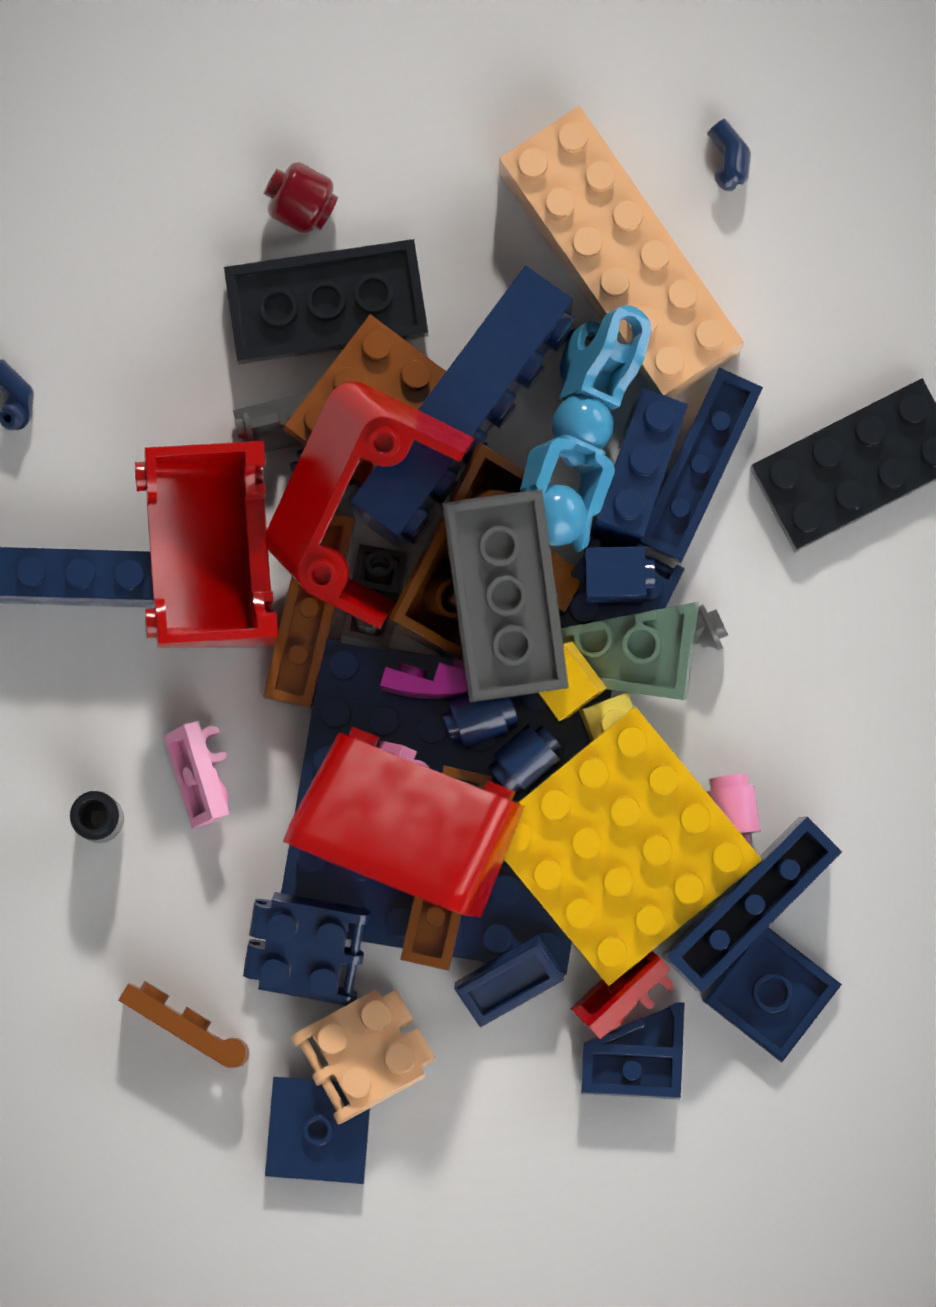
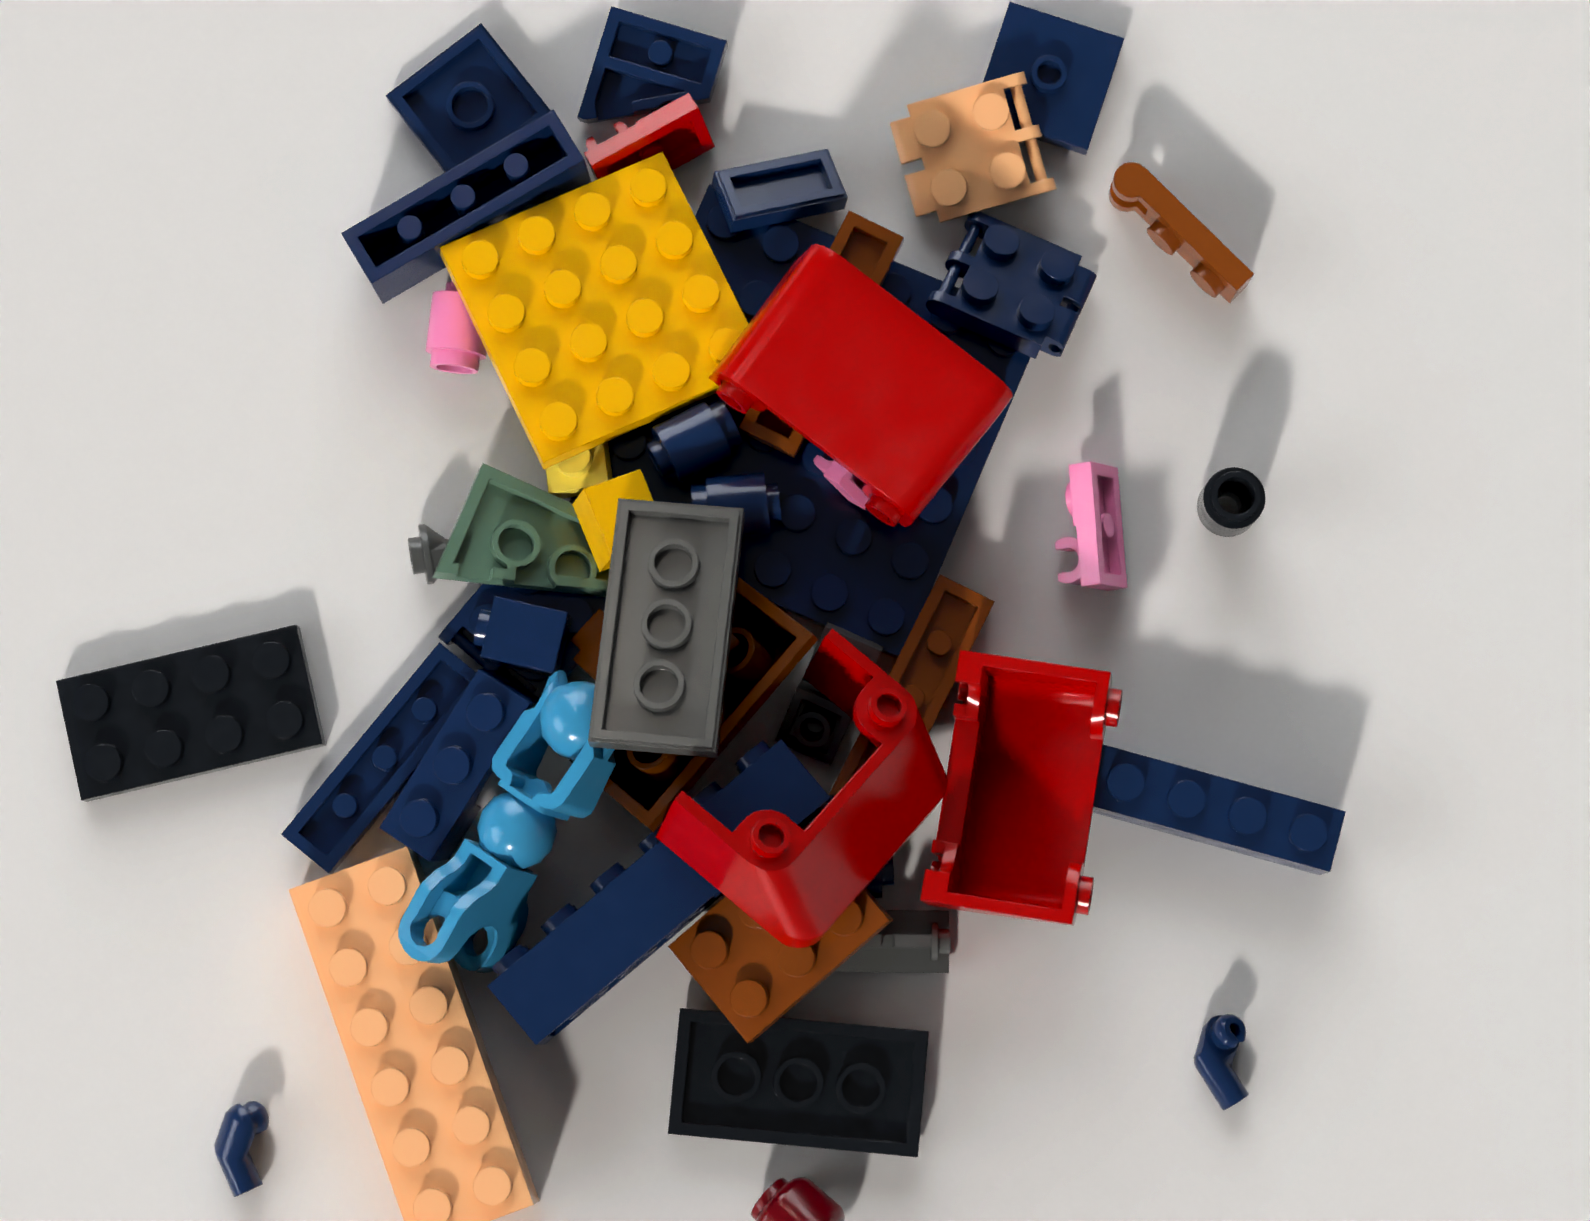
camera: 165 degrees left, 0 degrees up
(411, 681) = (809, 566): magenta slope -> none

